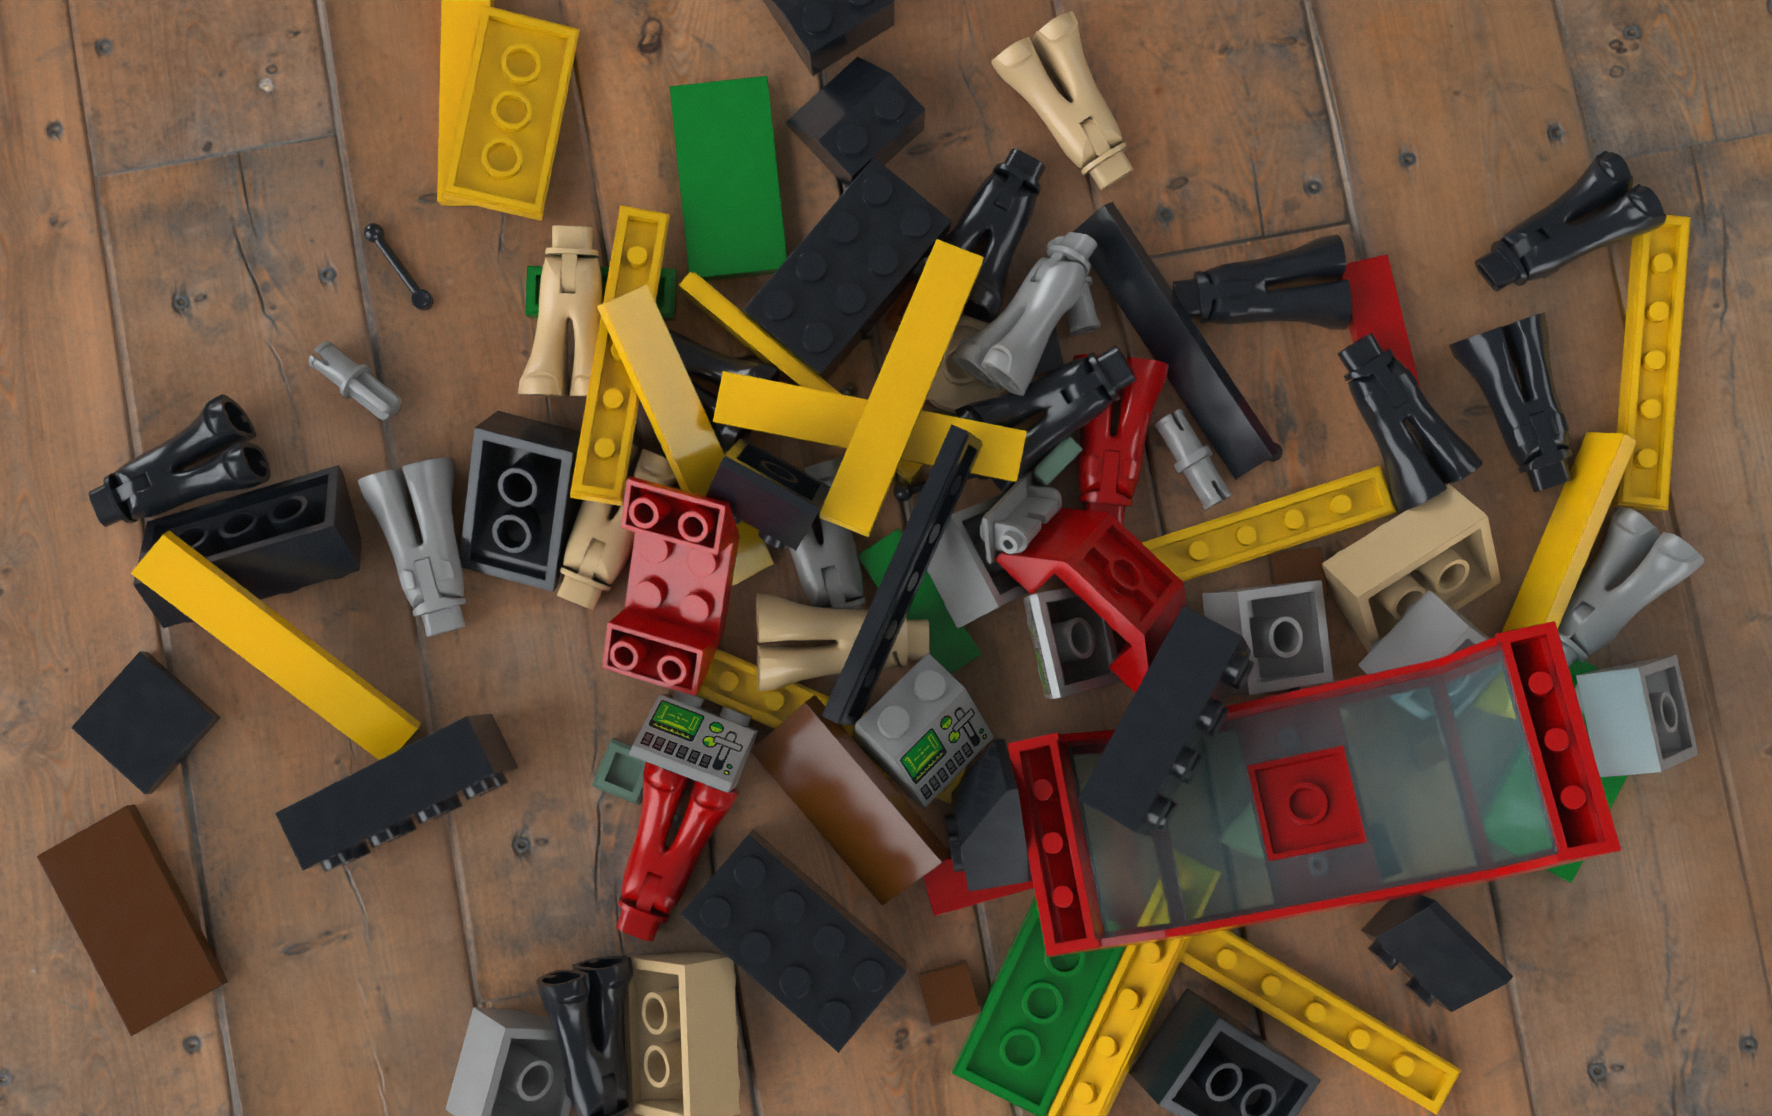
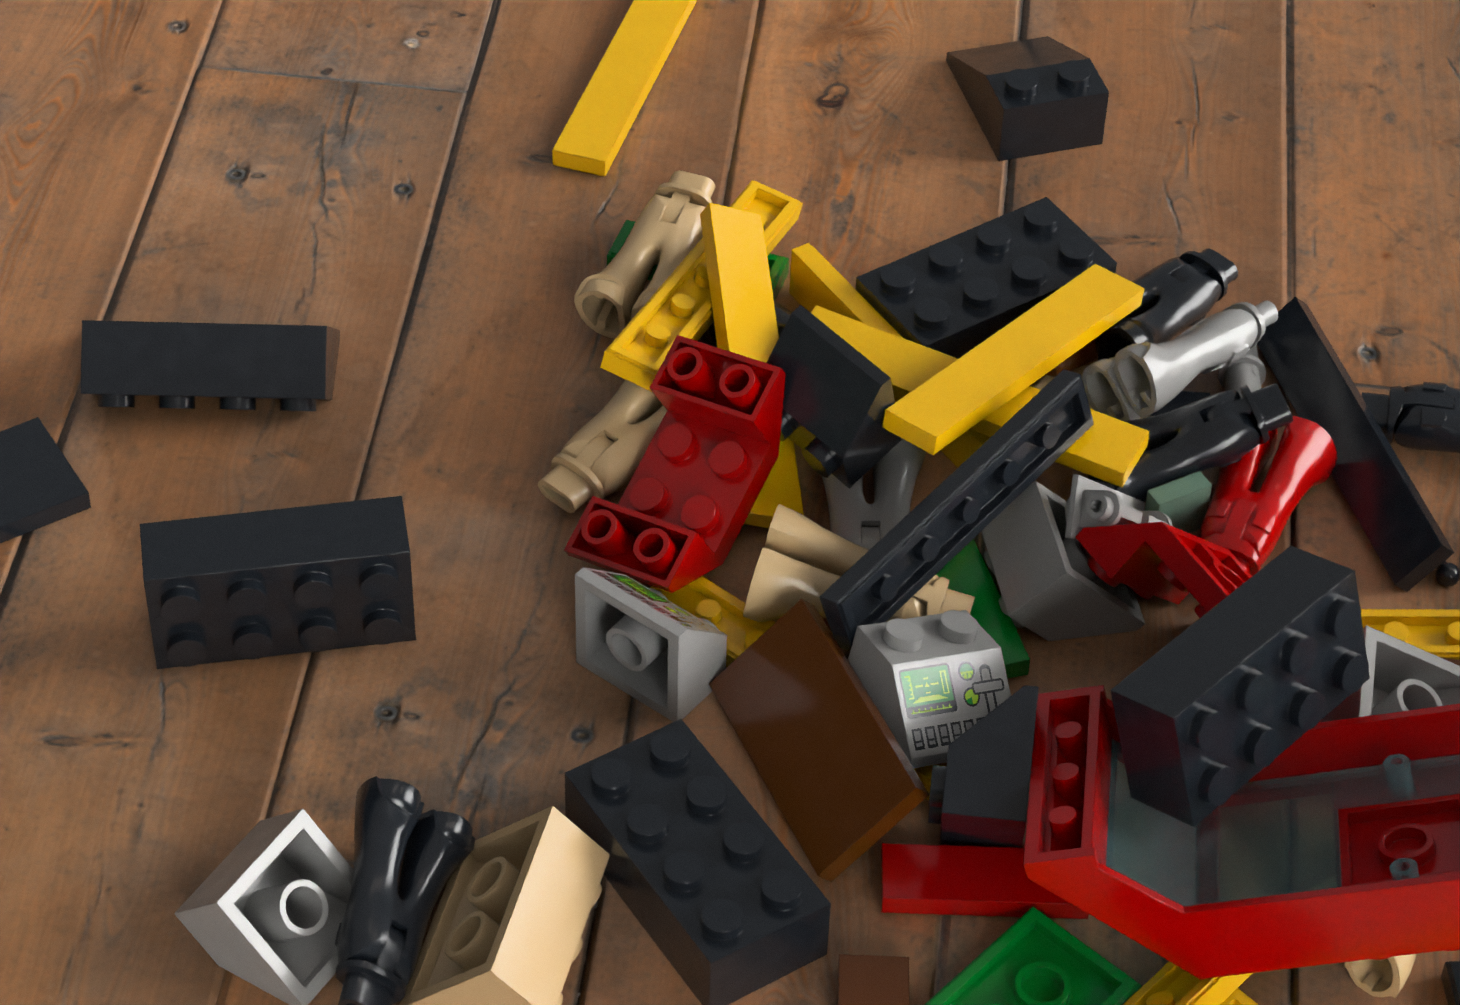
camera: 15 degrees right, 40 degrees down
(158, 479) = (200, 280): black piece -> none
(275, 646) = (188, 396): yellow tile -> none
(355, 381) = (395, 262): light grey axle -> none
(420, 298) = (496, 226): black hinge -> none
(431, 569) = (401, 426): light grey piece -> none
(510, 113) = (661, 104): yellow tile -> none
(519, 500) = (531, 389): black slope -> none
(621, 773) = (547, 668): sand green tile -> none
(660, 873) = (586, 716): red piece -> none
(728, 178) = (877, 198): green tile -> none
(858, 118) = (1070, 177): black slope -> none
(1069, 643) = (1135, 615): light grey slope -> none
(1085, 123) = (1276, 219): tan piece -> none
(1193, 459) = (1346, 545): light grey pin -> none

